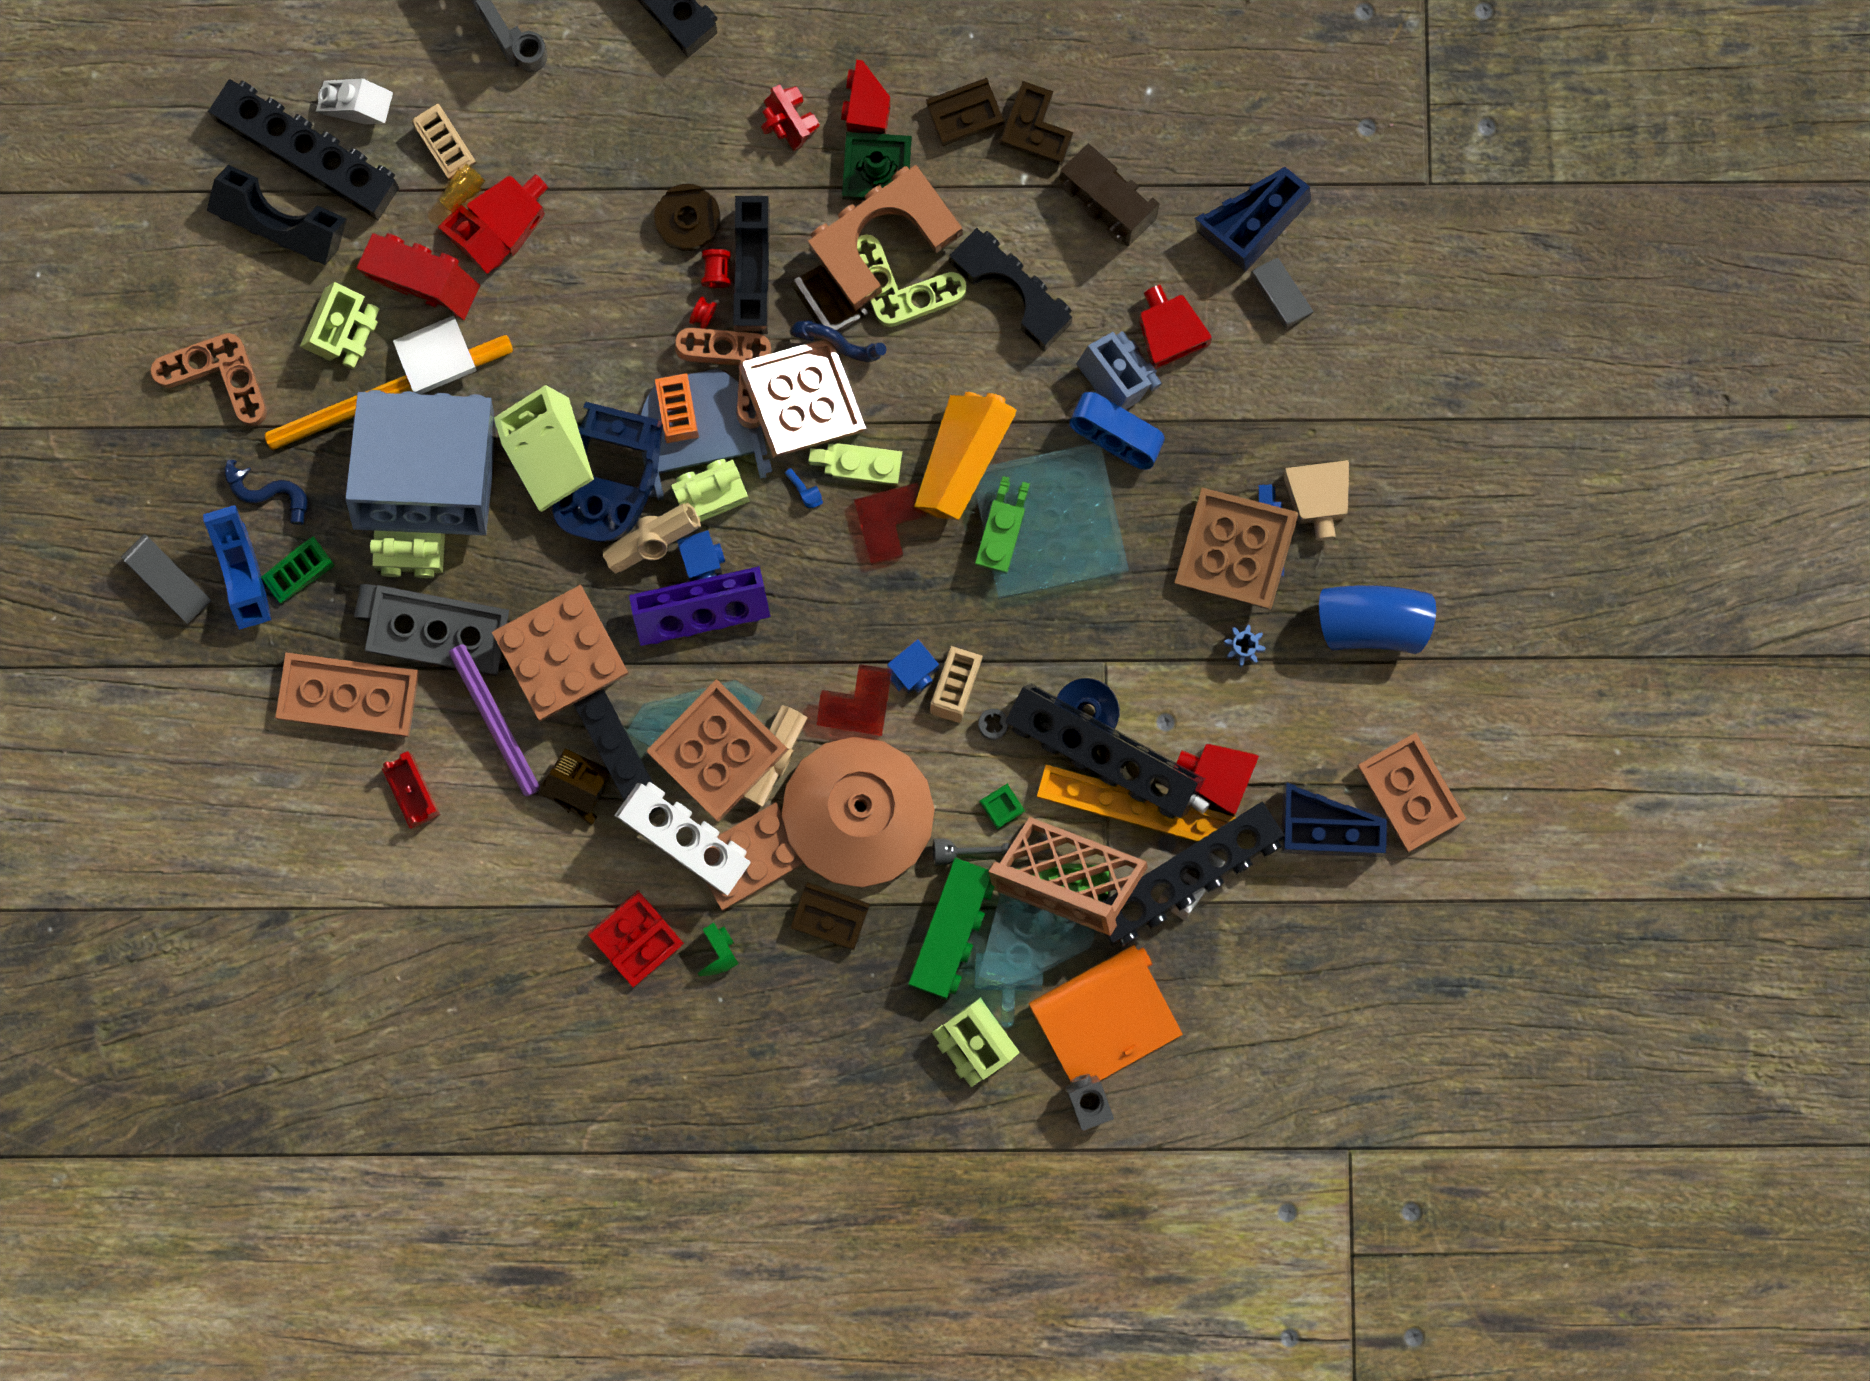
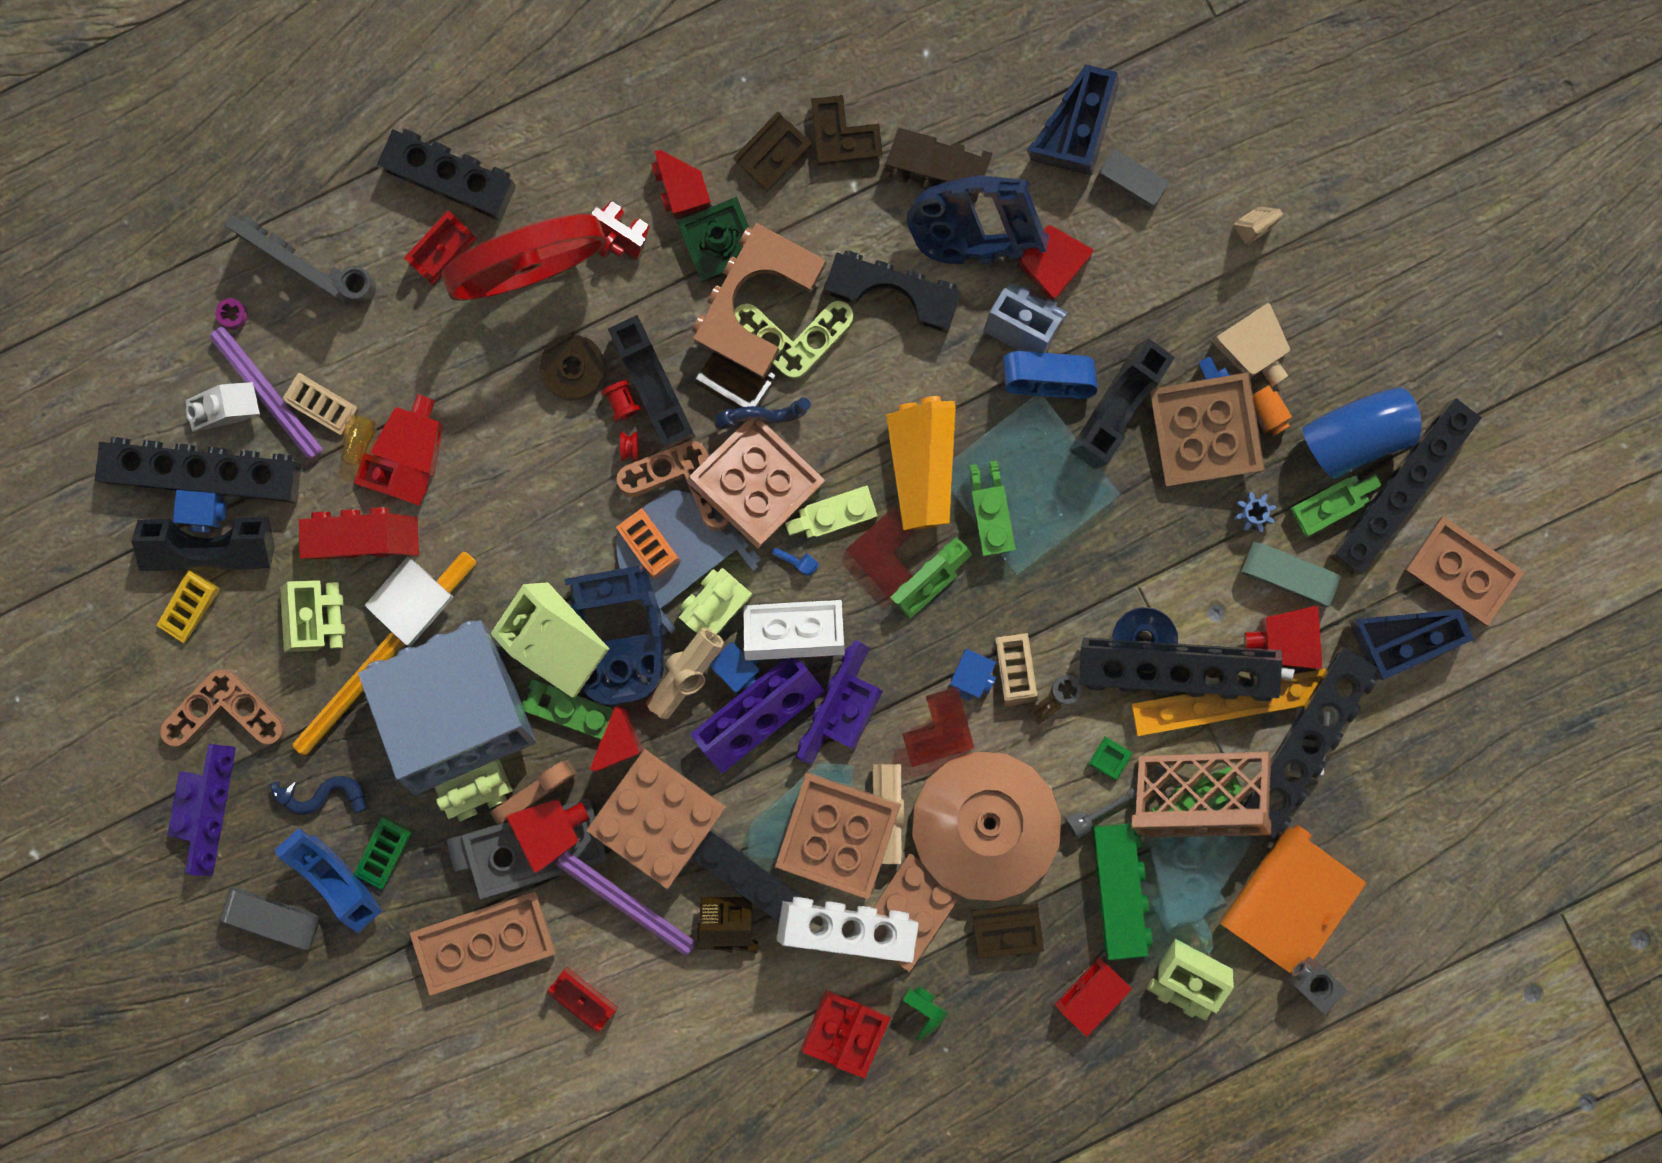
camera: 20 degrees left, 5 degrees up
(154, 450) = (201, 807): none -> dark purple bracket
(238, 275) = (190, 579): none -> yellow slope
(287, 183) = (199, 510): none -> blue brick
(396, 29) = (235, 304): none -> magenta bush
(399, 109) = (266, 393): none -> medium lavender axle
(455, 617) = (546, 830): none -> red torso
(486, 573) = (544, 785): none -> nougat beam
(531, 524) = (571, 712): none -> bright green plate
(558, 570) = (618, 741): none -> red slope
(621, 54) = (439, 247): none -> red hinge
(685, 95) = (523, 257): none -> red piece
(769, 547) = (793, 630): none -> white plate
(780, 641) = (844, 708): none -> dark purple bracket
(879, 1014) = (1093, 996): none -> red hinge
(917, 563) = (931, 578): none -> bright green hinge
(964, 731) = (1045, 709): none -> dark brown bush
(1090, 258) = (950, 230): none -> dark blue slope
(1168, 486) = (1133, 382): none -> black arch
(1250, 718) = (1291, 574): none -> sand green beam
(1303, 561) = (1271, 411): none -> orange brick
(1321, 673) = (1333, 503): none -> bright green hinge
(1374, 387) = (1257, 223): none -> tan slope
(1393, 688) = (1405, 487): none -> black brick

